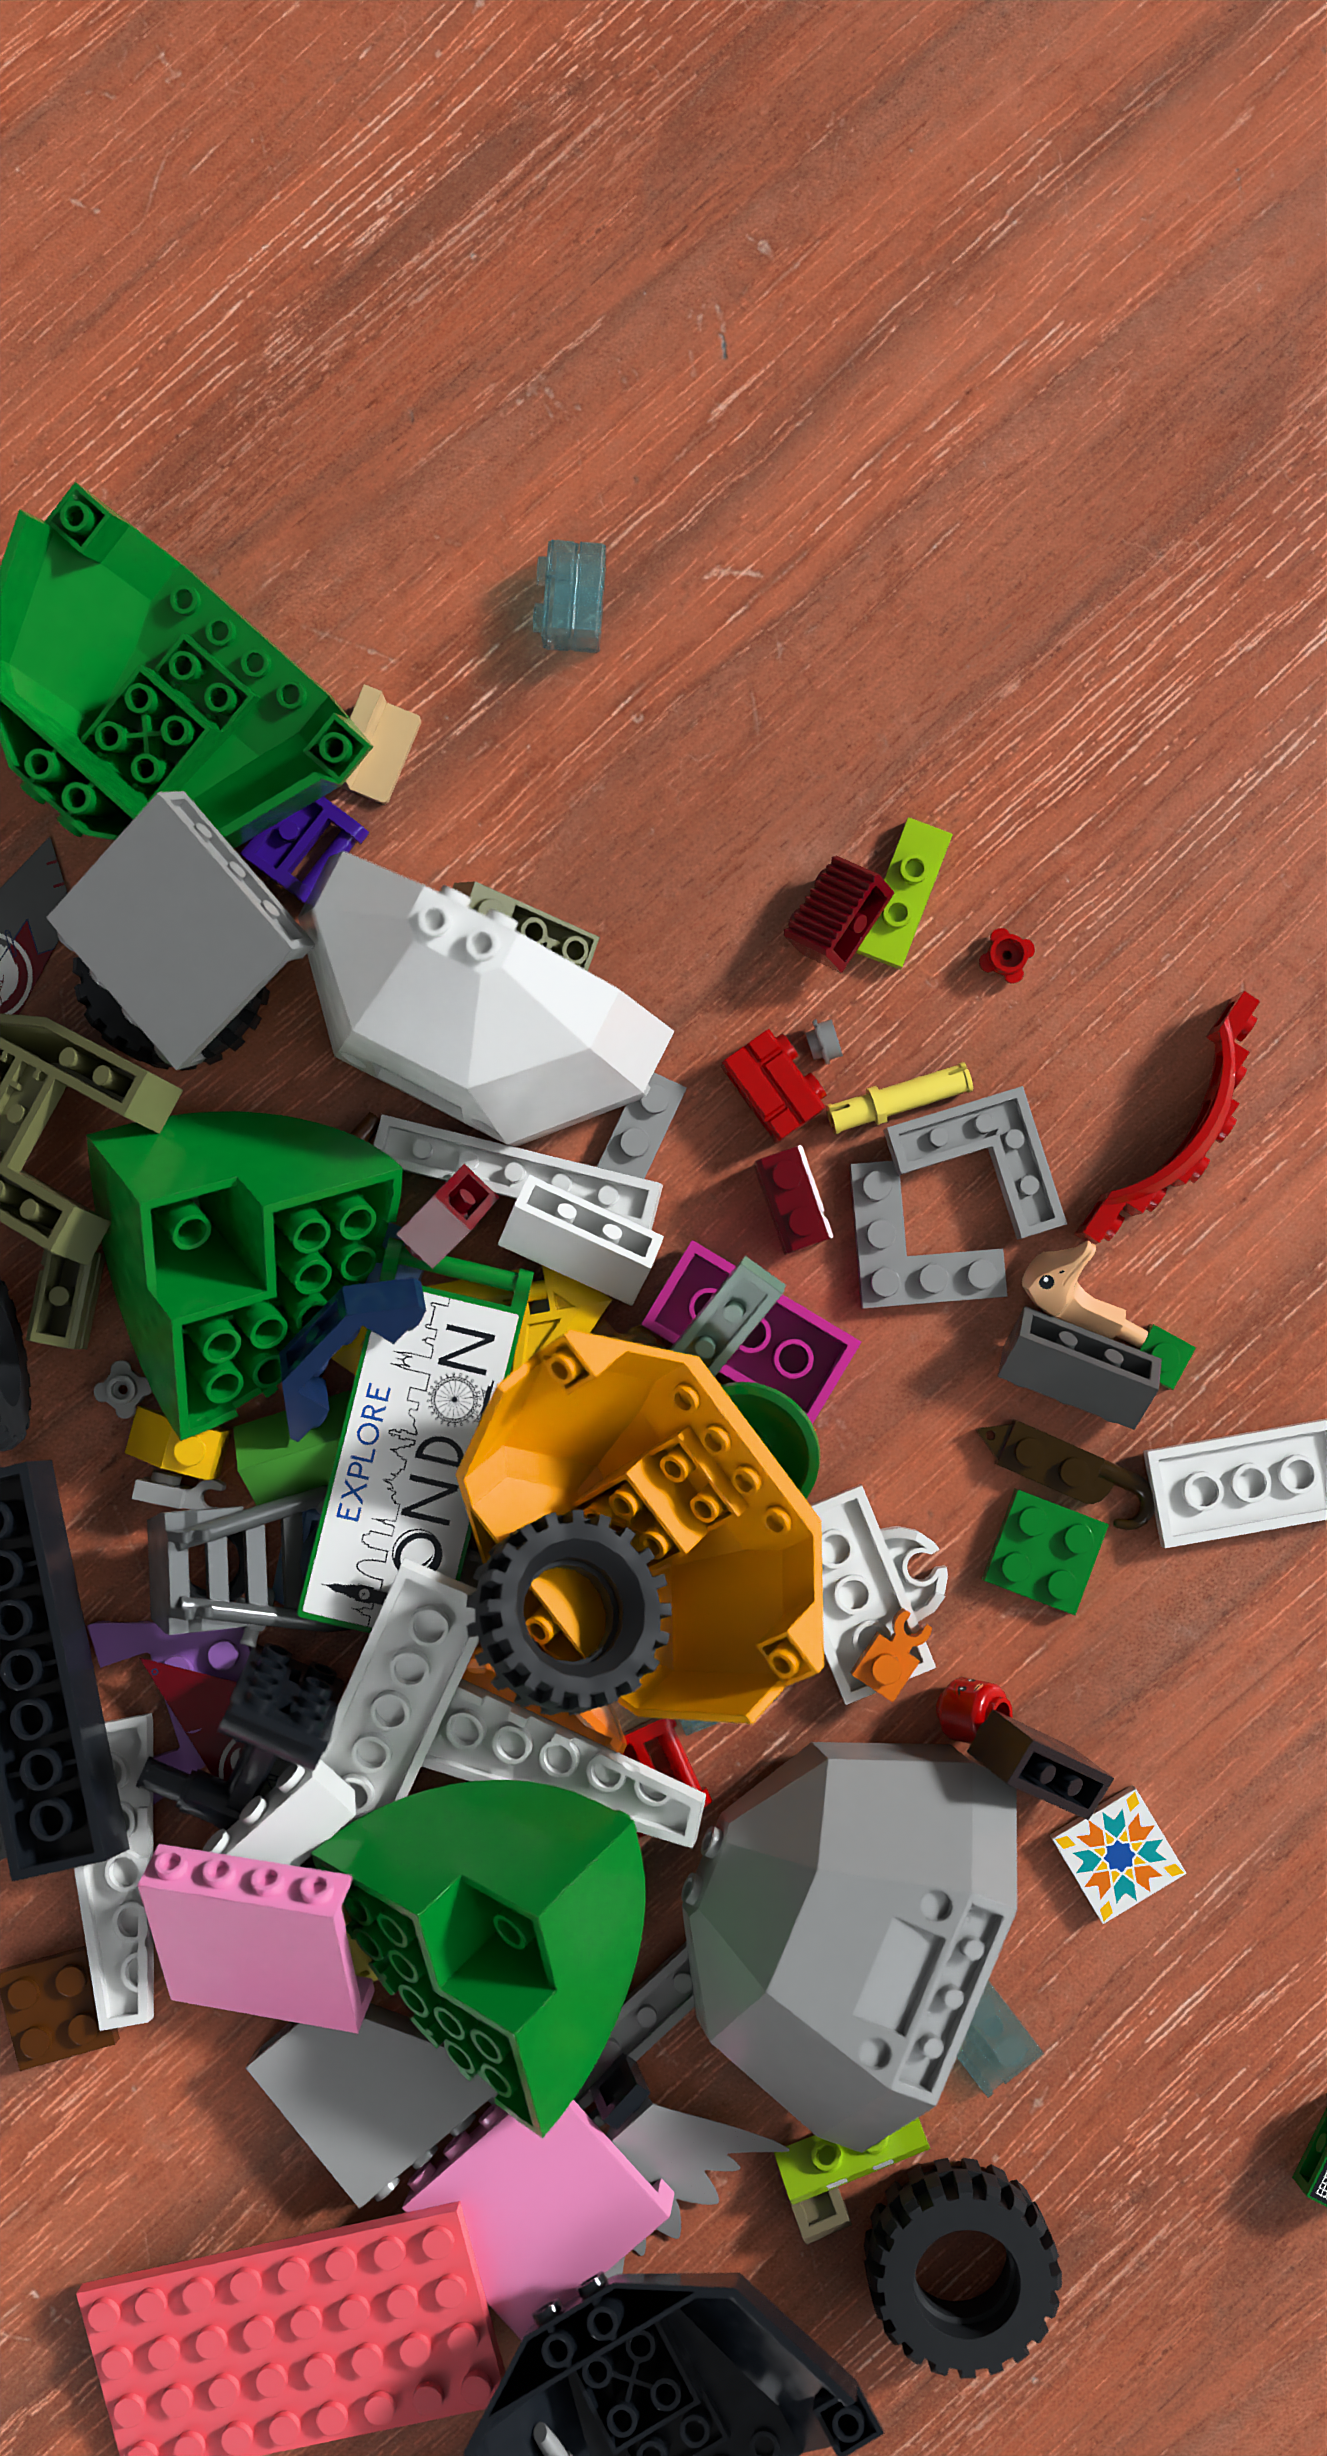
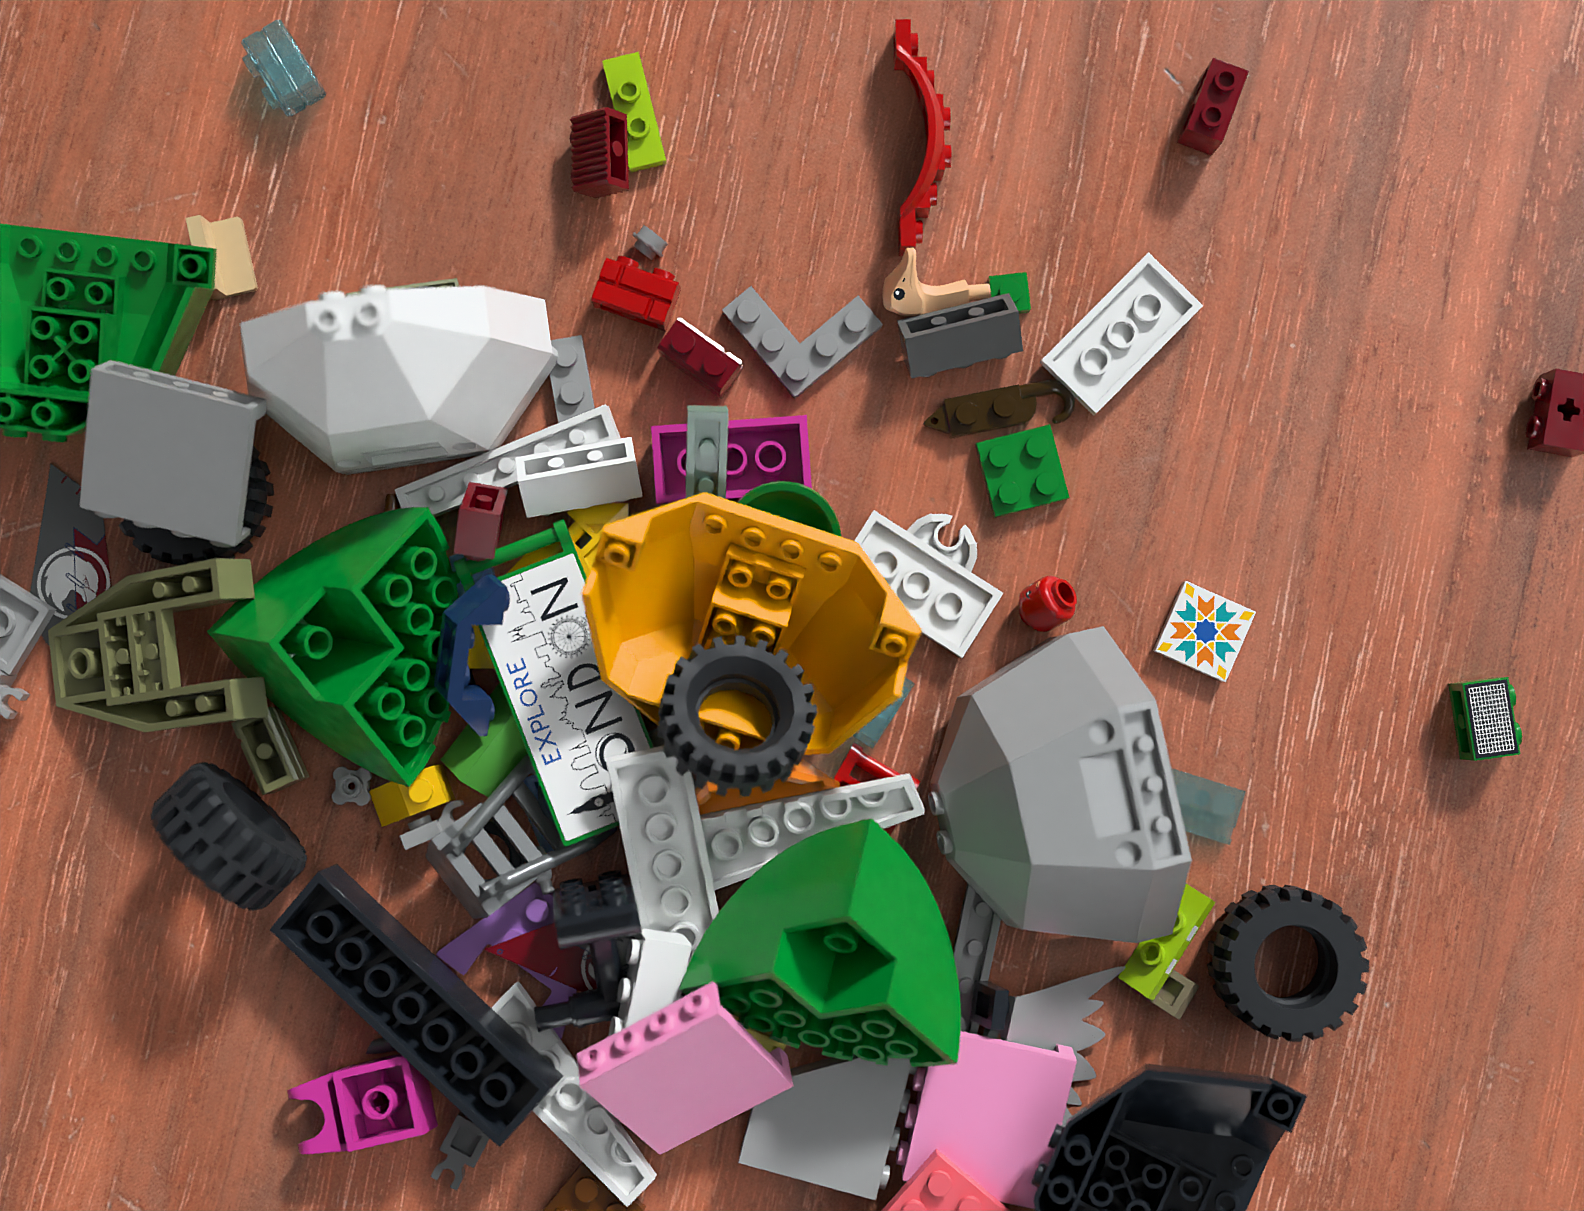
camera: 30 degrees left, 0 degrees up
(287, 843) = (208, 350): dark purple plate -> none
(887, 1662) = (969, 611): orange plate -> none
(898, 1098) = (714, 257): light yellow pin -> none
(1003, 942) = (733, 95): red plate -> none
(1010, 1134) = (806, 217): light grey plate -> none
(1039, 1765) = (1110, 604): black brick -> none

